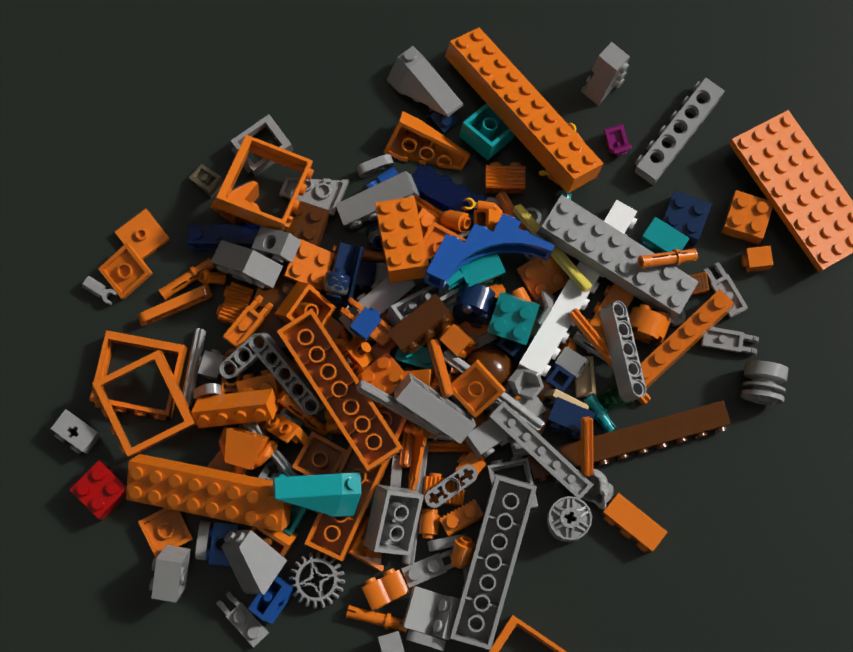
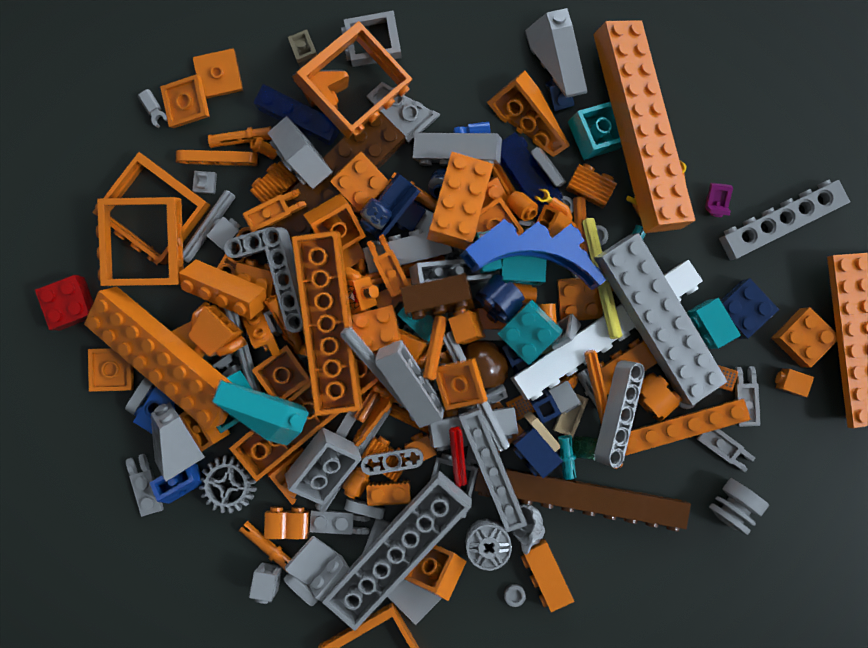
camera: 25 degrees right, 10 degrees up
(86, 436) = (77, 243): light grey brick -> none
(170, 573) = (91, 415): light grey brick -> none
(173, 331) = (204, 182): none -> light grey tile
(206, 390) = (207, 257): light grey beam -> none
(276, 244) = (336, 147): light grey brick -> none
(366, 323) = (383, 271): blue brick -> none
(375, 165) = (472, 112): light grey beam -> none
(461, 179) = (548, 167): none -> light grey tile
(462, 552) = (373, 527): orange brick -> none
(505, 452) = (458, 458): none -> red axle
(526, 383) = (511, 399): light grey panel -> none
(528, 597) = (413, 600): none -> light grey tile
(536, 565) = (437, 572): none -> orange slope
(586, 446) = (538, 489): orange axle -> none
(608, 73) = (744, 129): light grey wedge -> none
(615, 556) = (514, 595): none -> light grey tile
(675, 257) = (716, 348): orange pin -> none

